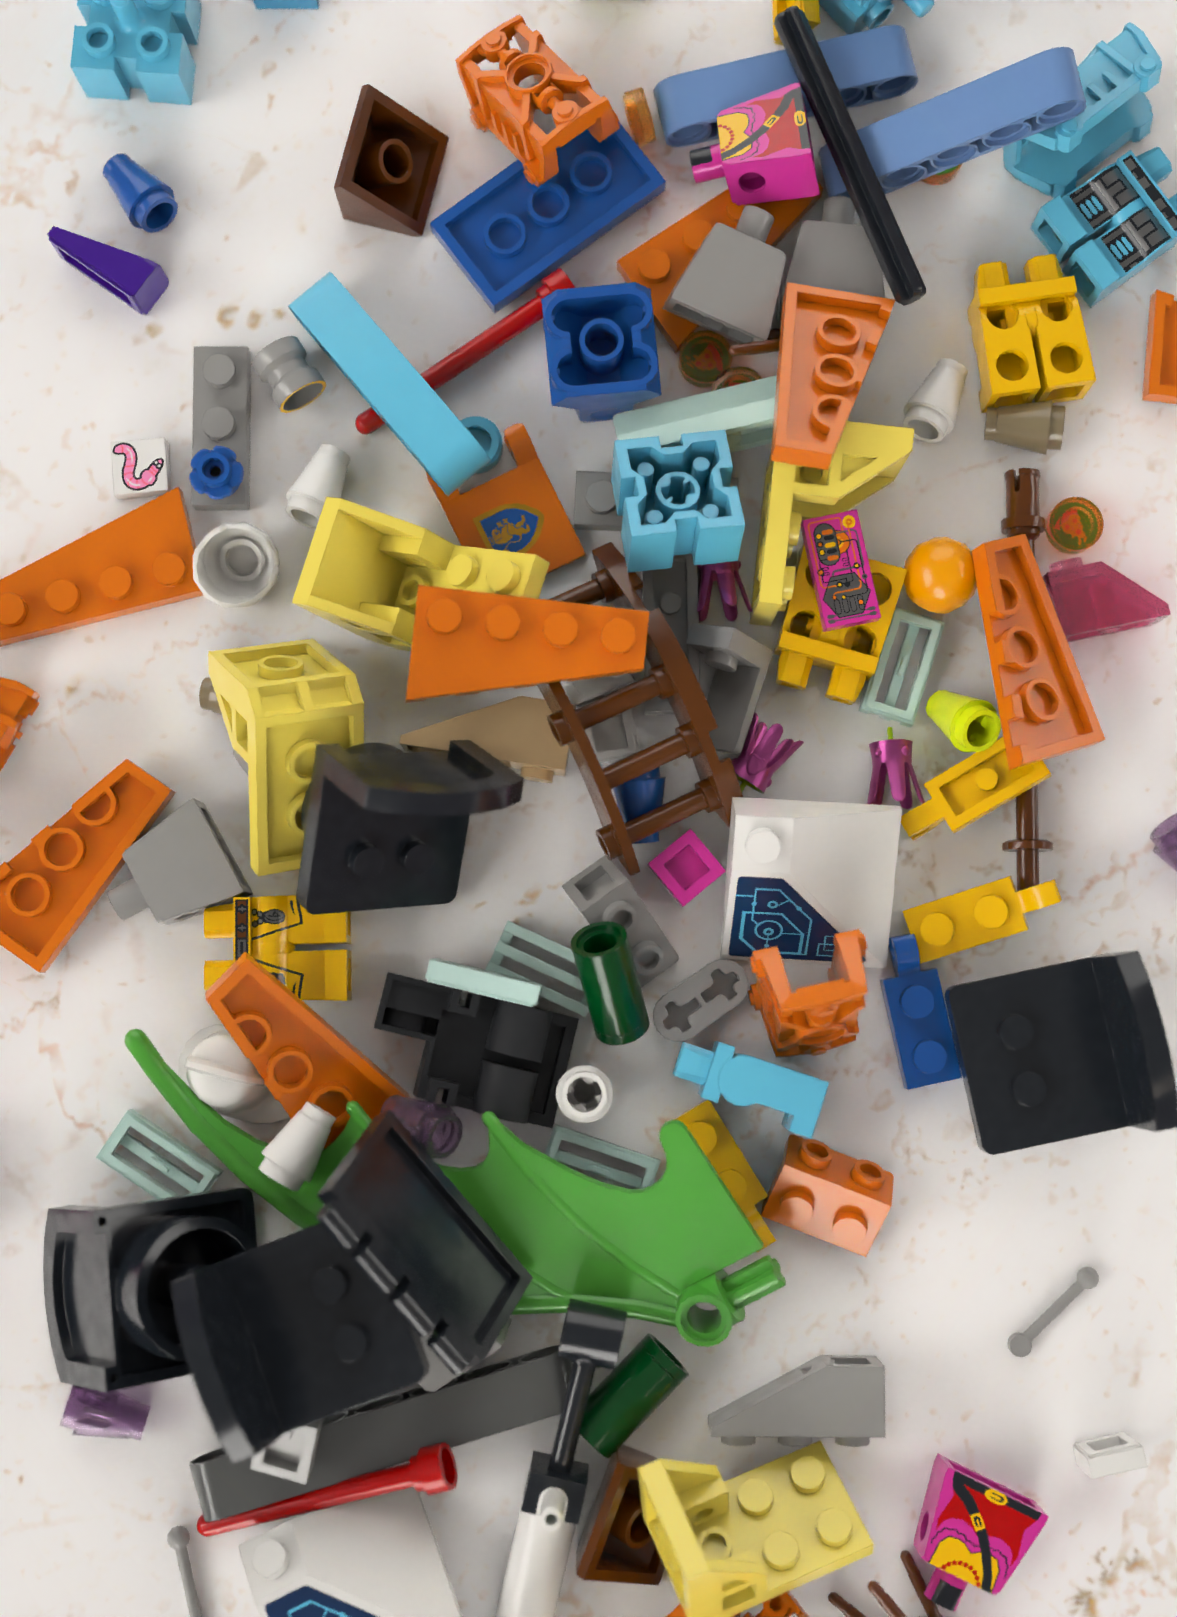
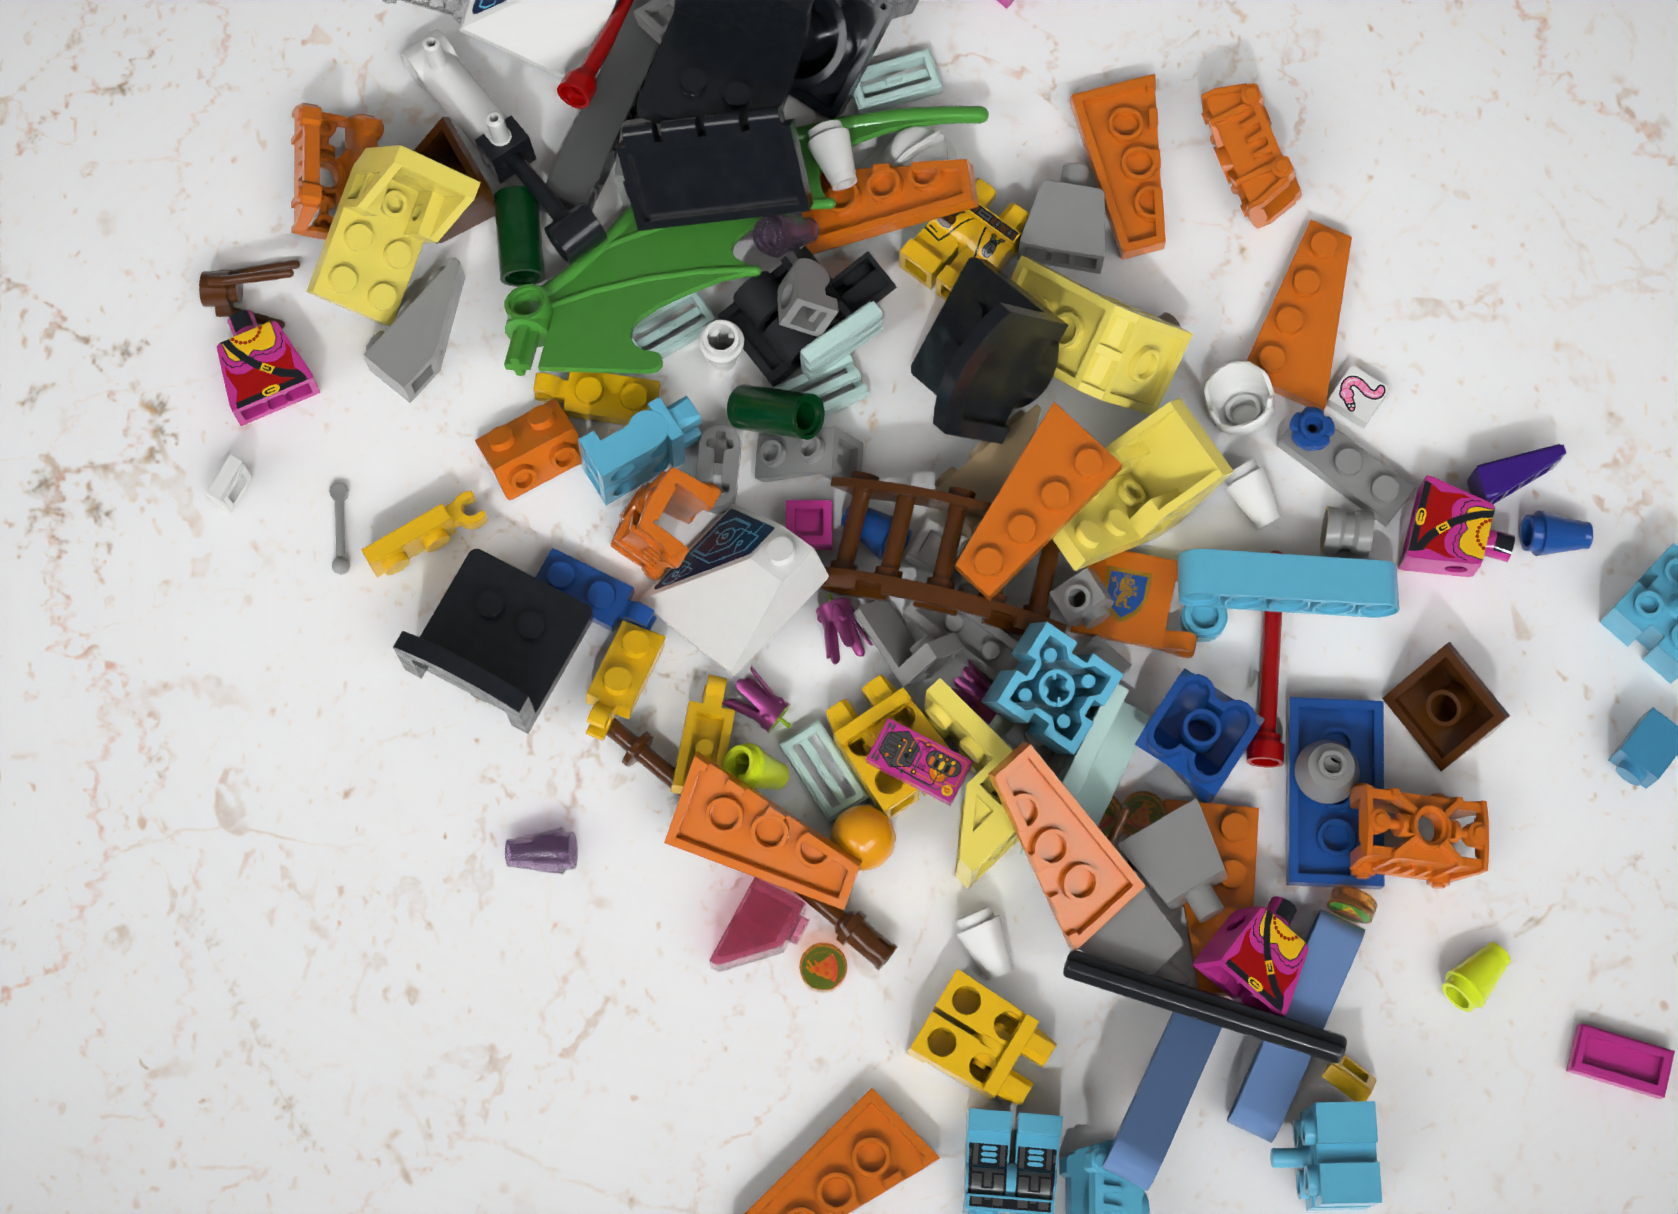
camera: 130 degrees right, 10 degrees down
(214, 283) = (1451, 532): none -> torso
(480, 1045) = (804, 299): none -> light grey leg
(545, 227) = (1326, 771): none -> light grey cone
(563, 549) = (1083, 599): none -> light grey plate
(994, 1218) = (423, 533): none -> yellow plate
(1027, 426) = (916, 989): dark tan cone -> none

